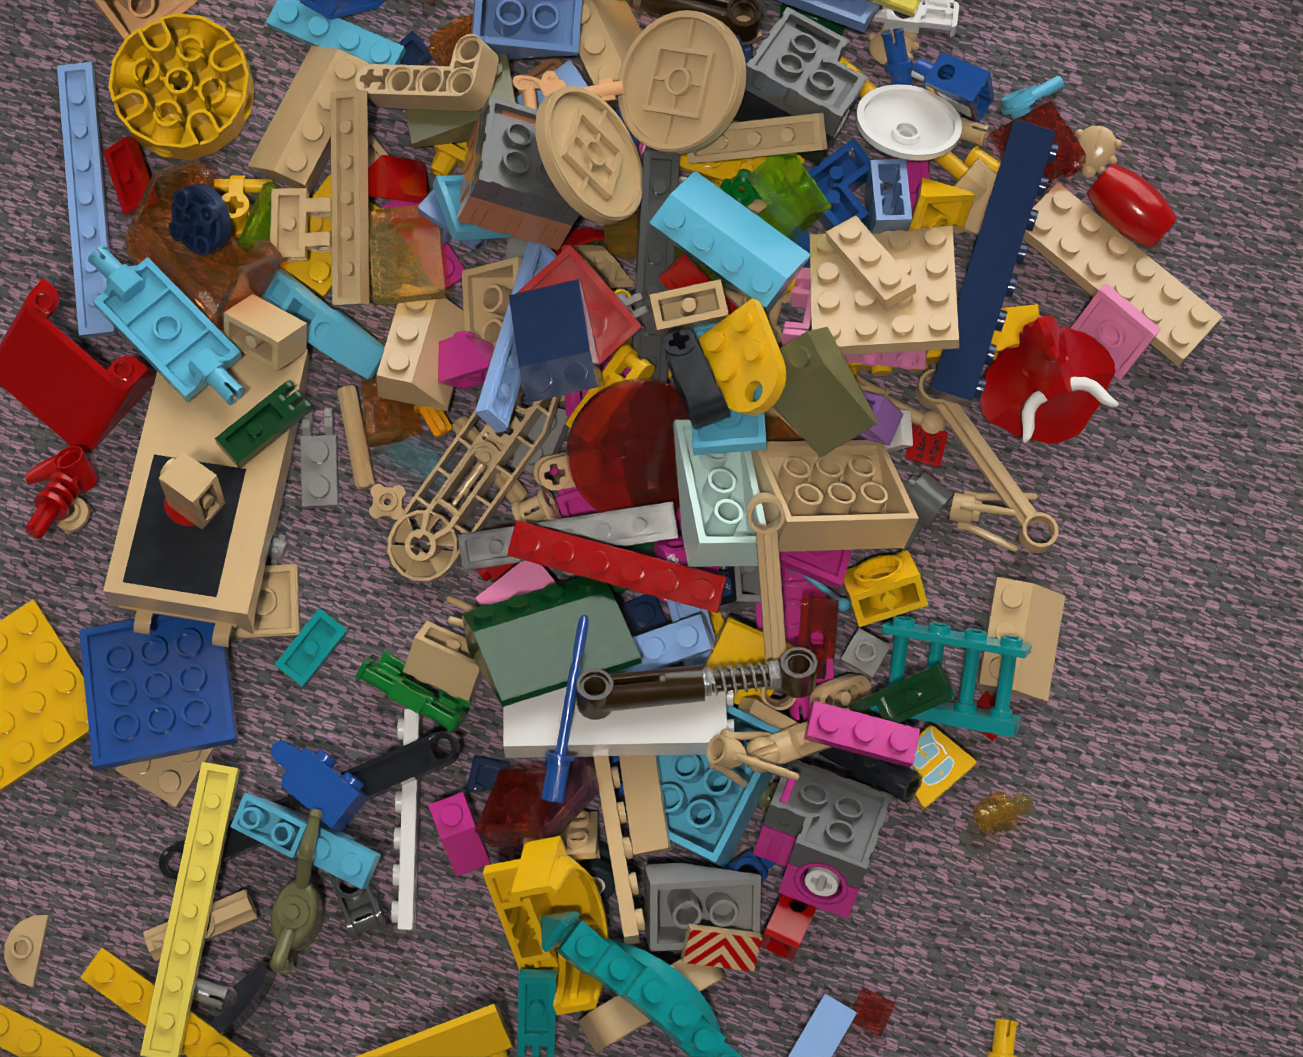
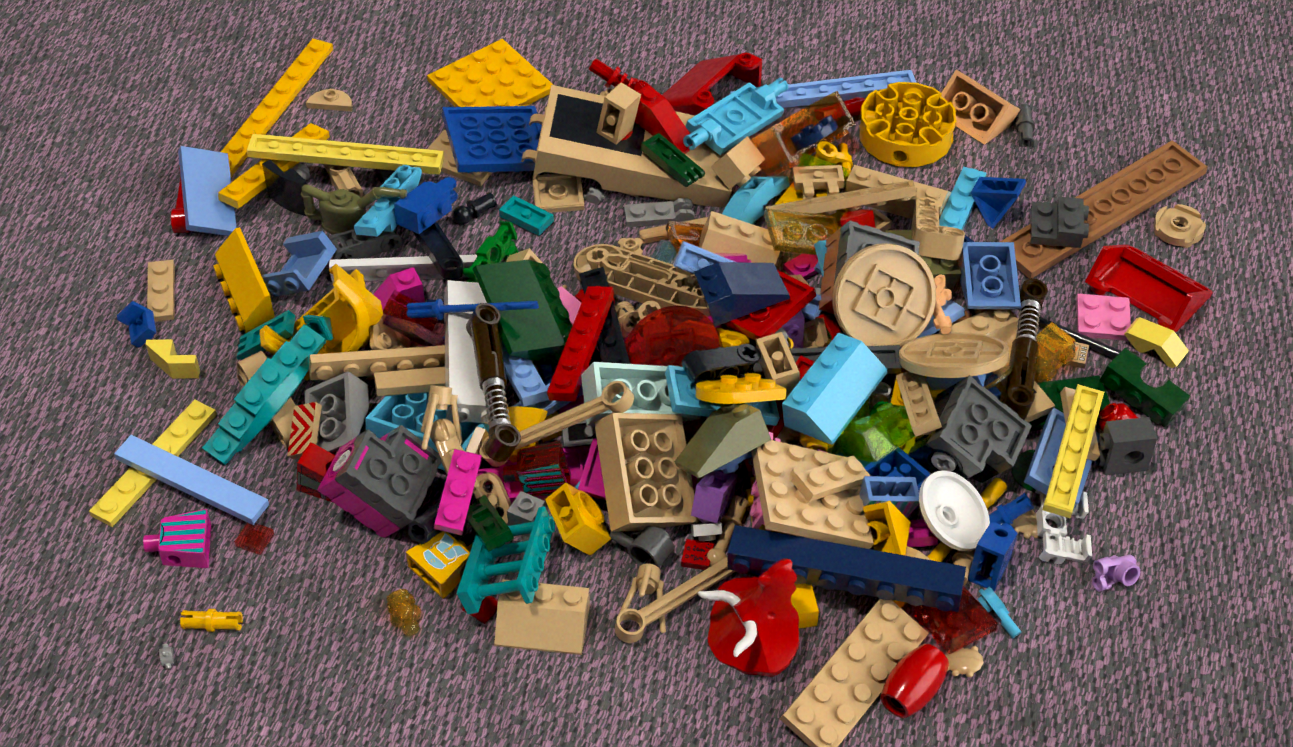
camera: 80 degrees right, 30 degrees down
(185, 430) = (658, 116): none -> red slope
(290, 721) = (463, 214): none -> black pin
(402, 972) = (307, 260): none -> medium blue panel
(1117, 327) = (804, 666): bright pink plate -> none

